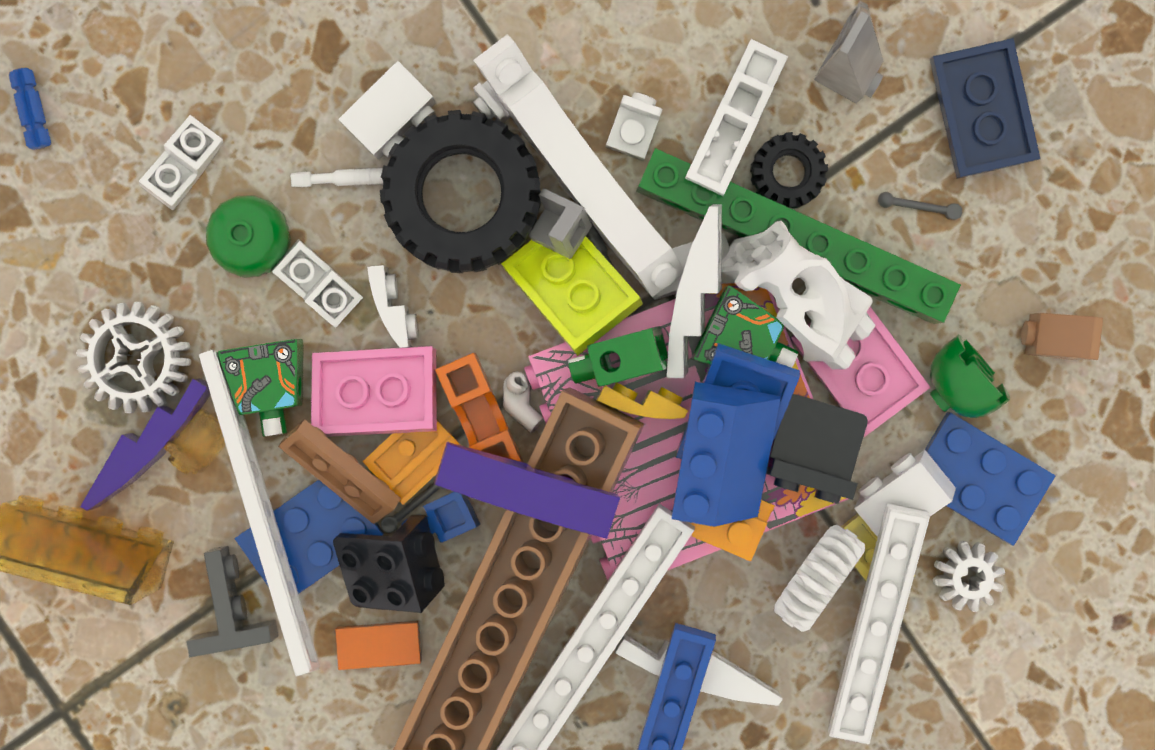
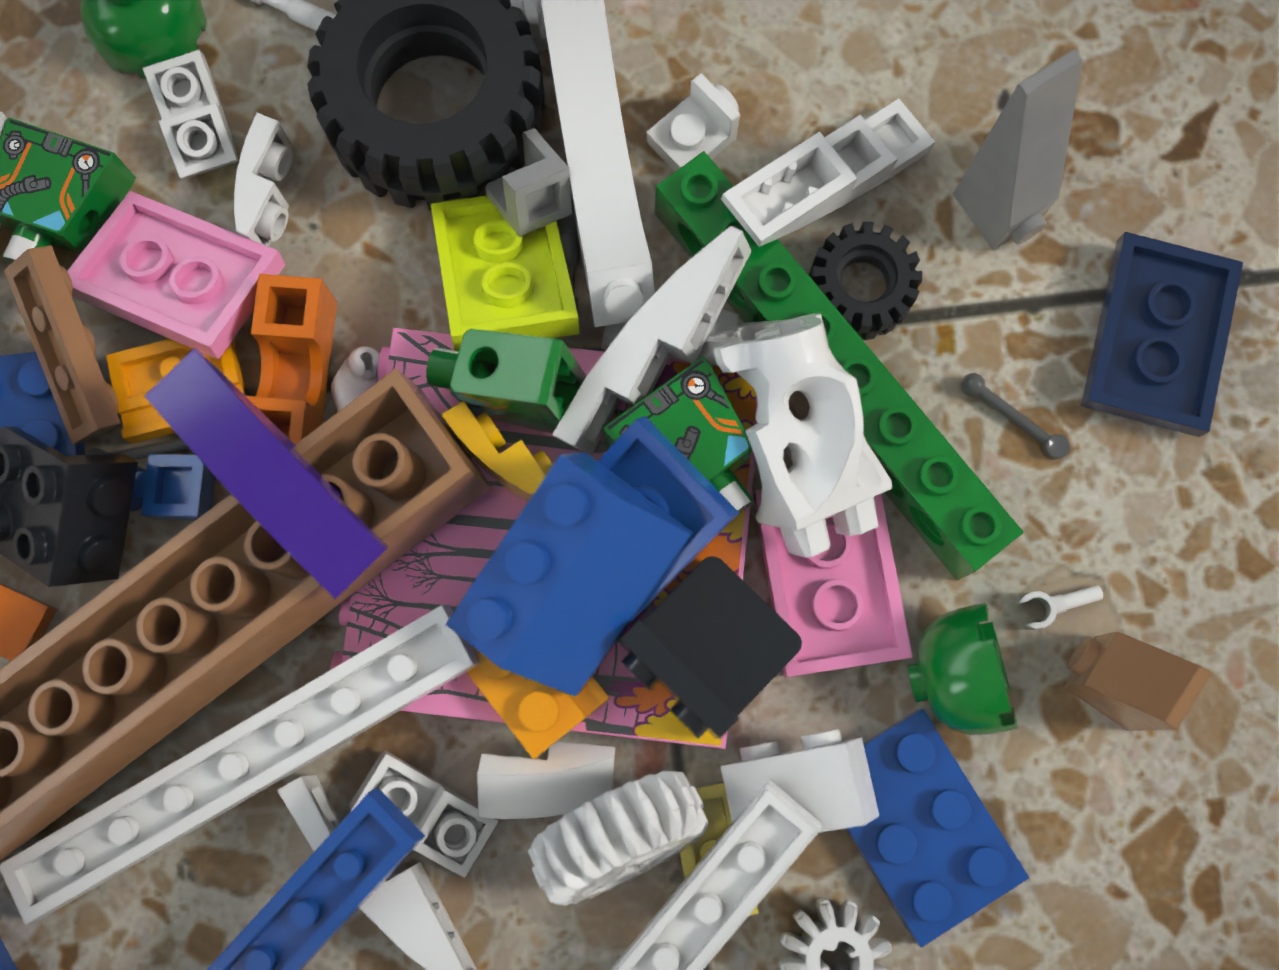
camera: 30 degrees right, 10 degrees down
(712, 616) = (446, 818): none -> white slope
(772, 560) = (544, 788): none -> white slope
(999, 308) = (1061, 603): none -> white hand

